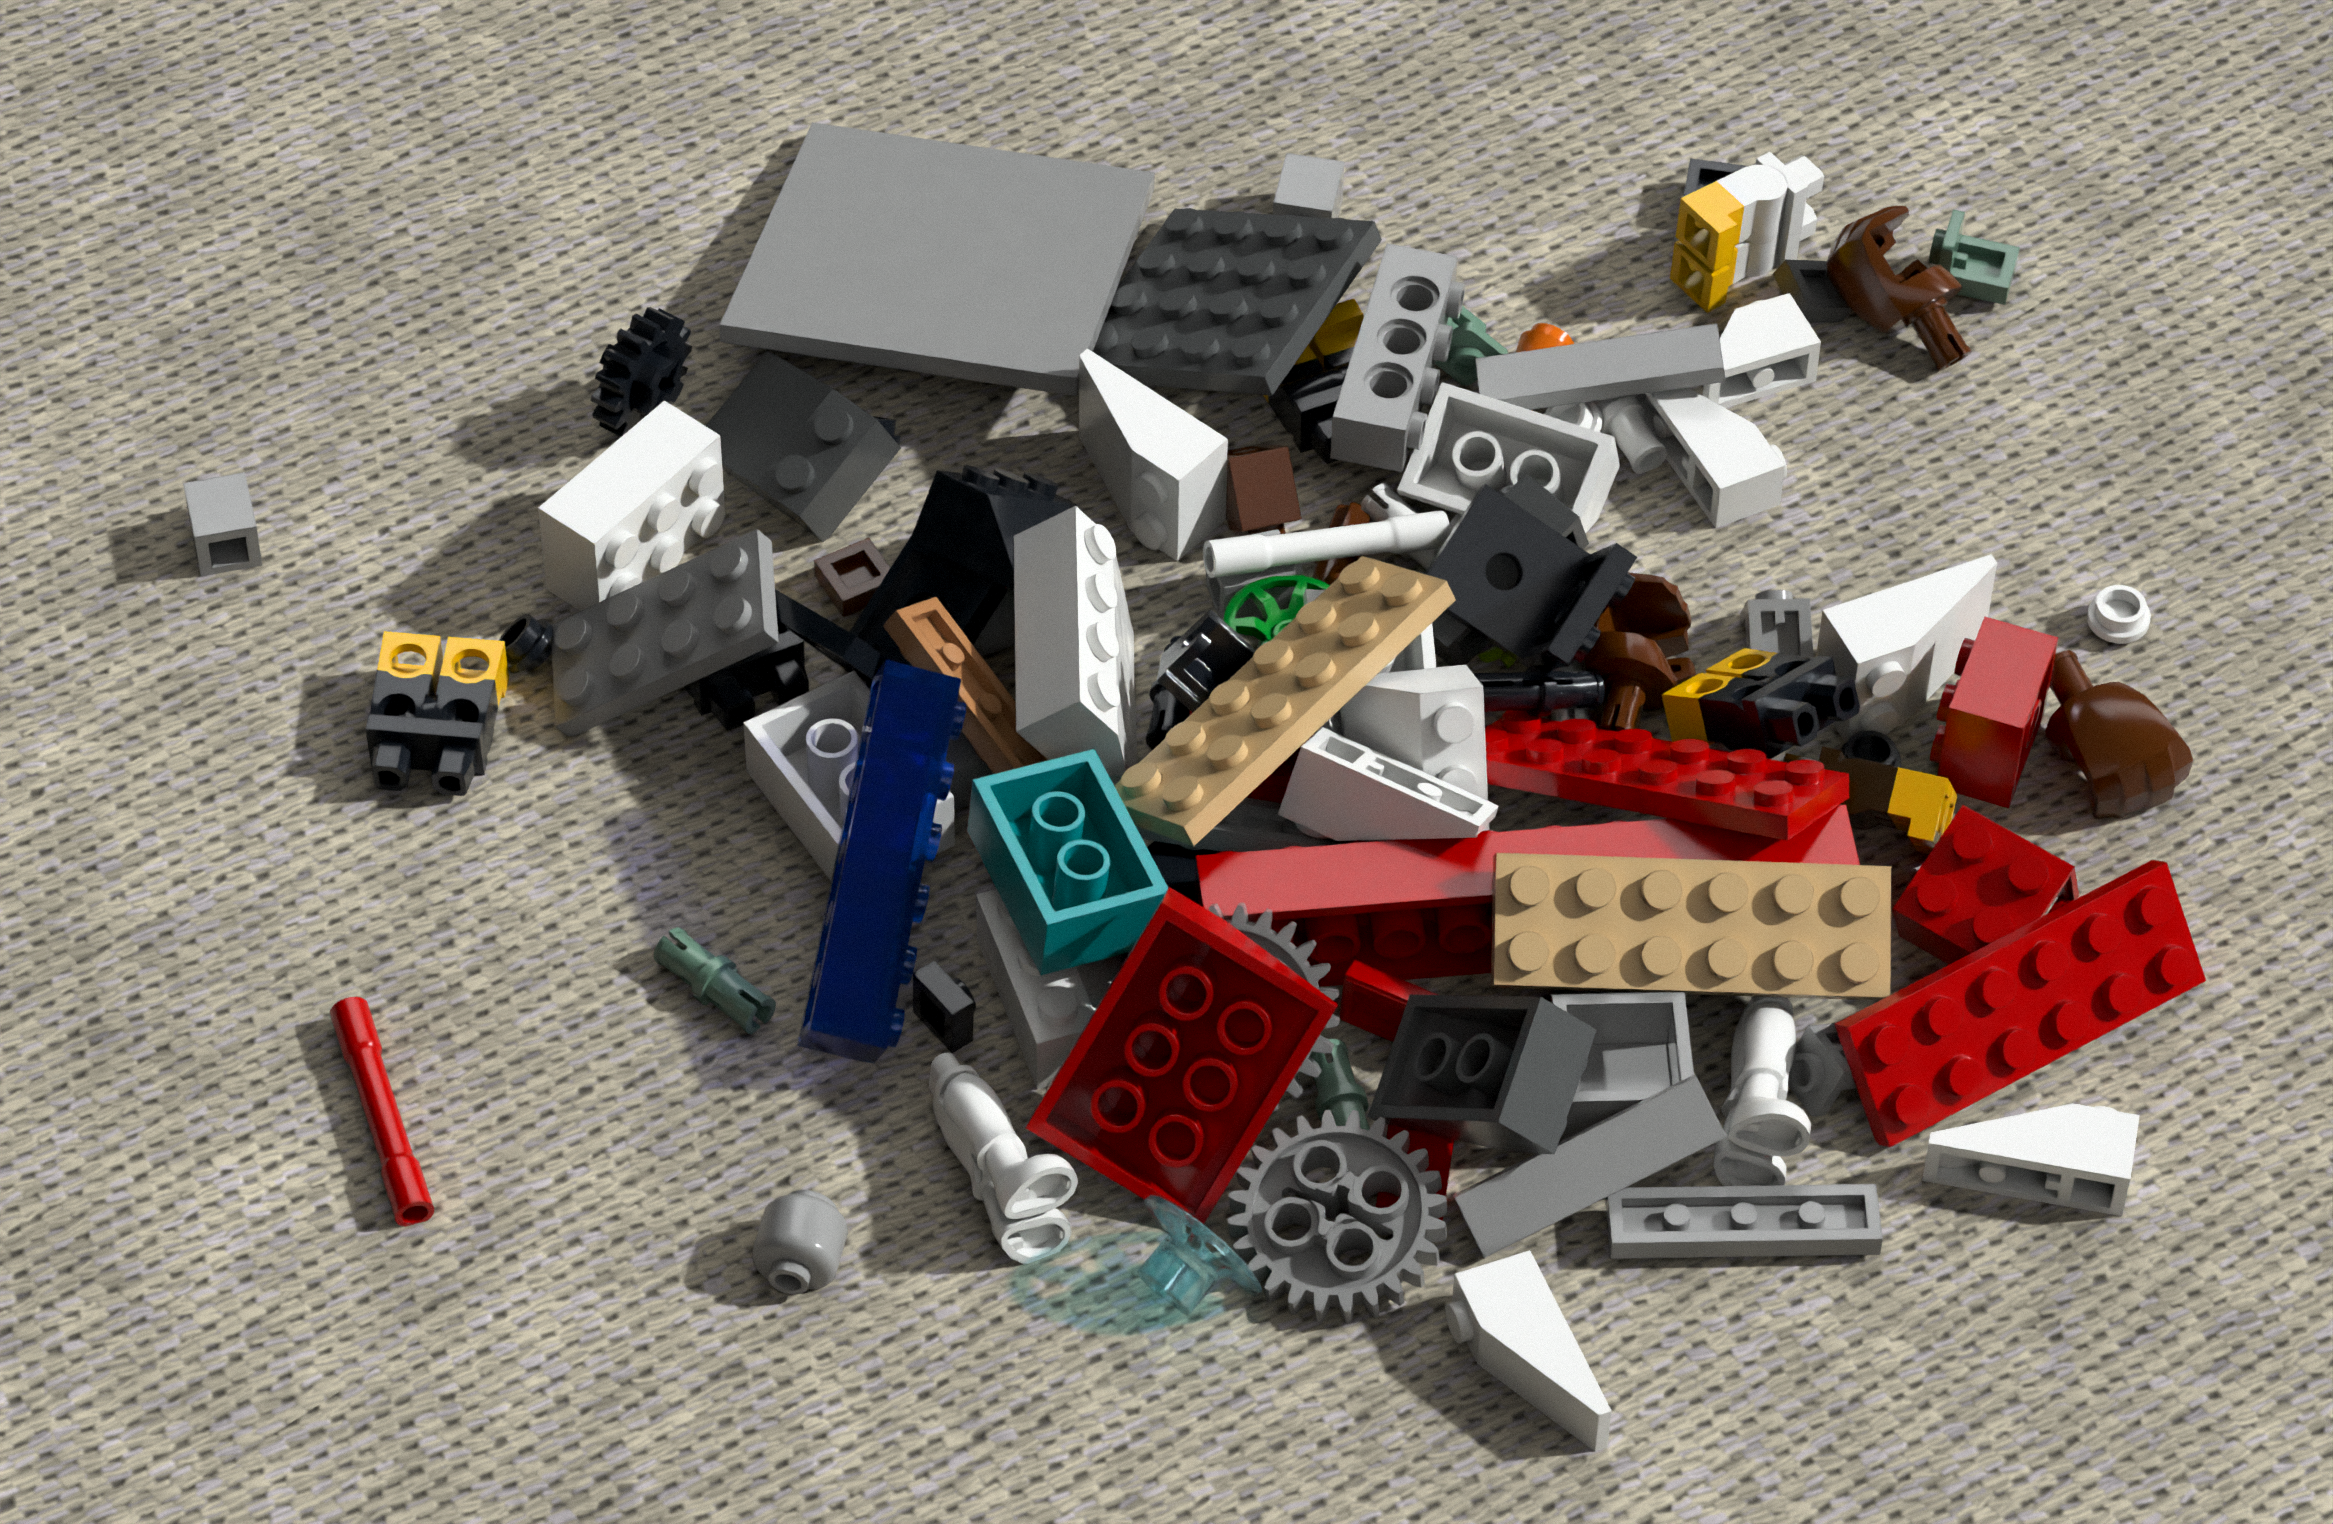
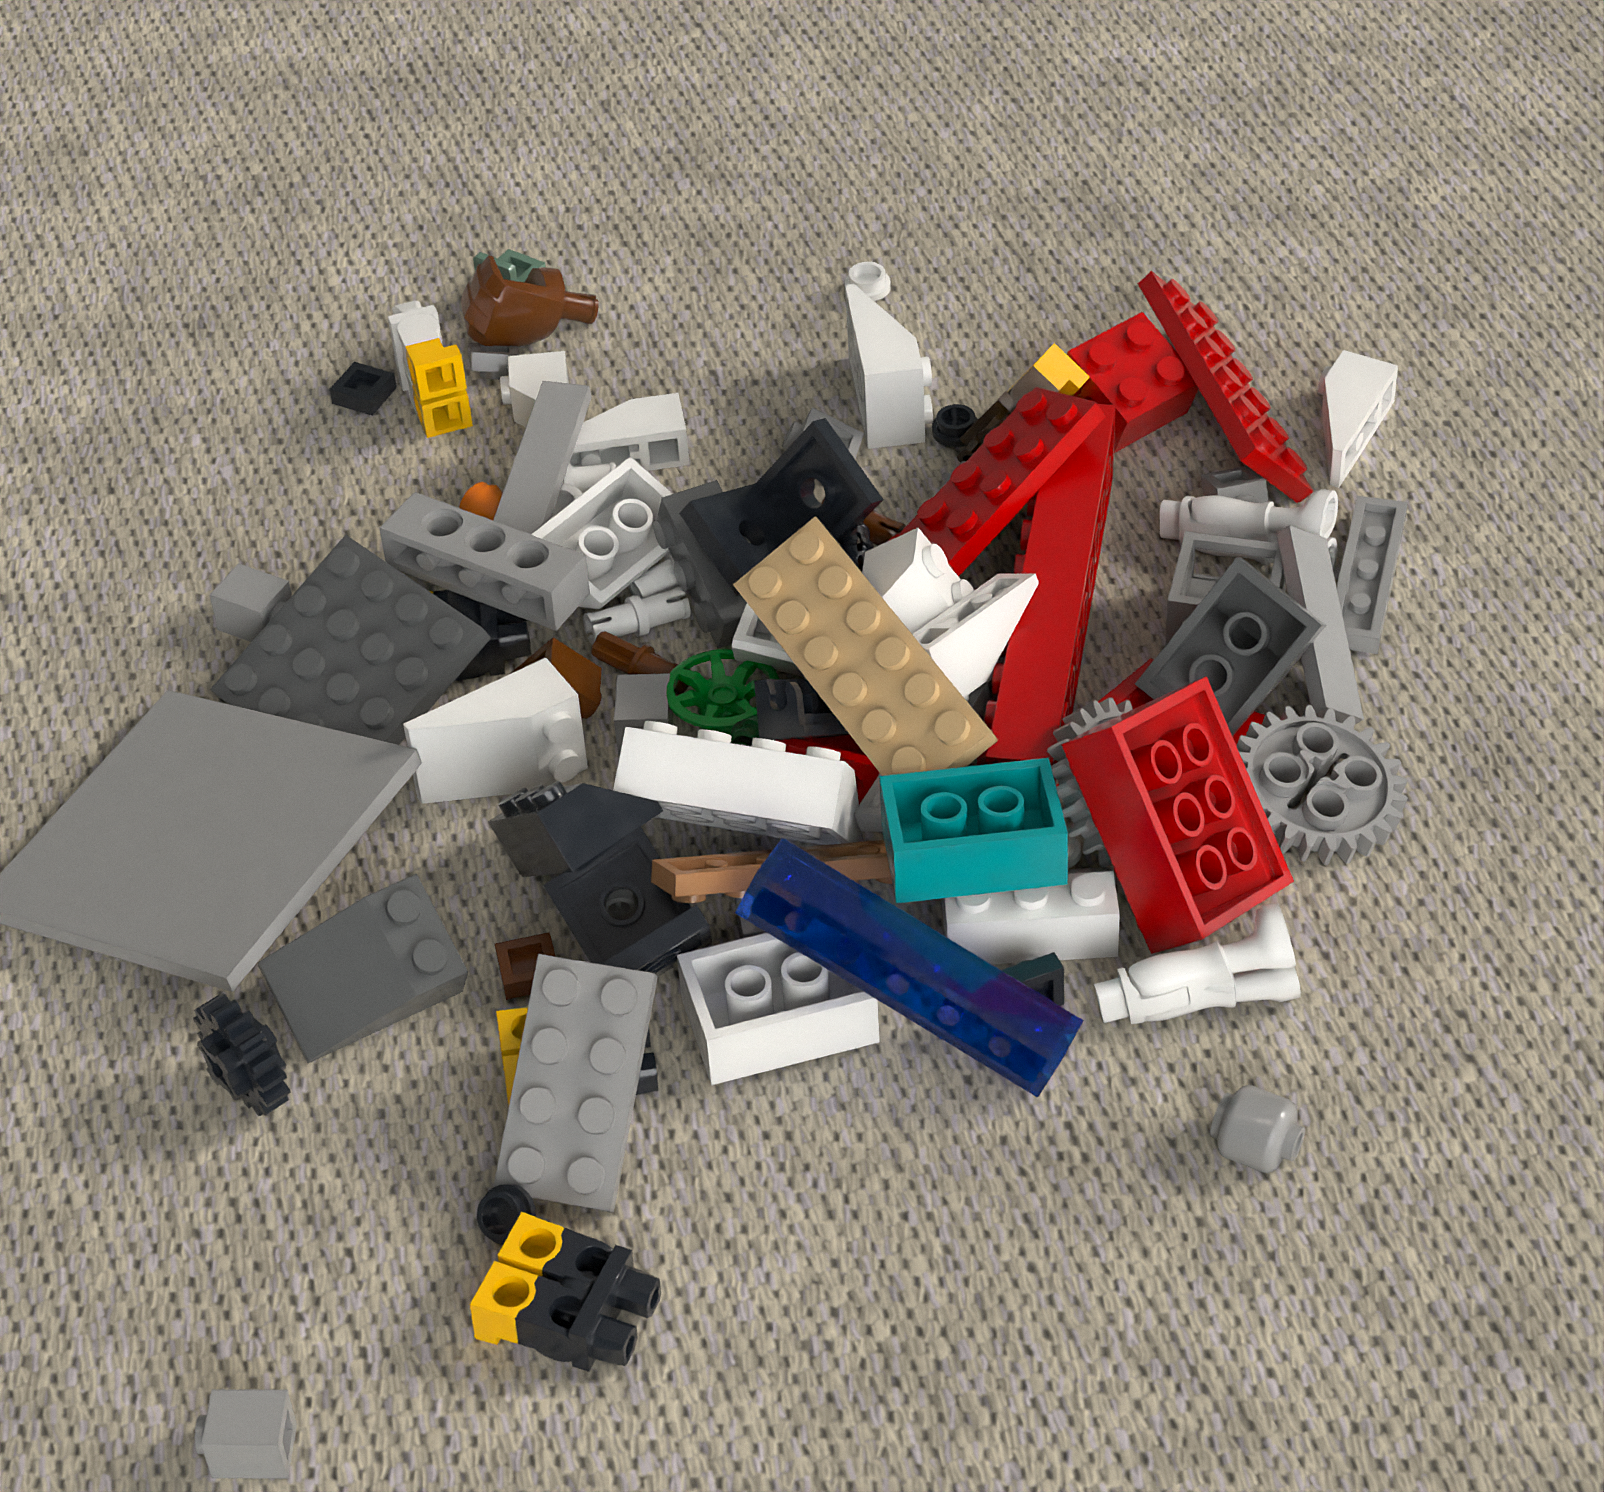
camera: 70 degrees left, 5 degrees down
(400, 1169) = (1093, 1415): red piece -> none
(633, 509) = (409, 1089): white brick -> none
(714, 980) = (945, 1144): sand green pin -> none
(1183, 1266) = (1349, 880): clear light blue wheel -> none
(1261, 552) = (653, 679): white piece -> none
(1527, 1345) = (1459, 703): white slope -> none
(1691, 926) = (1137, 509): tan plate -> none
(1760, 701) = (917, 440): black hips -> none
(1993, 710) = (964, 335): red brick -> none
(2116, 739) = (991, 286): reddish brown piece -> none

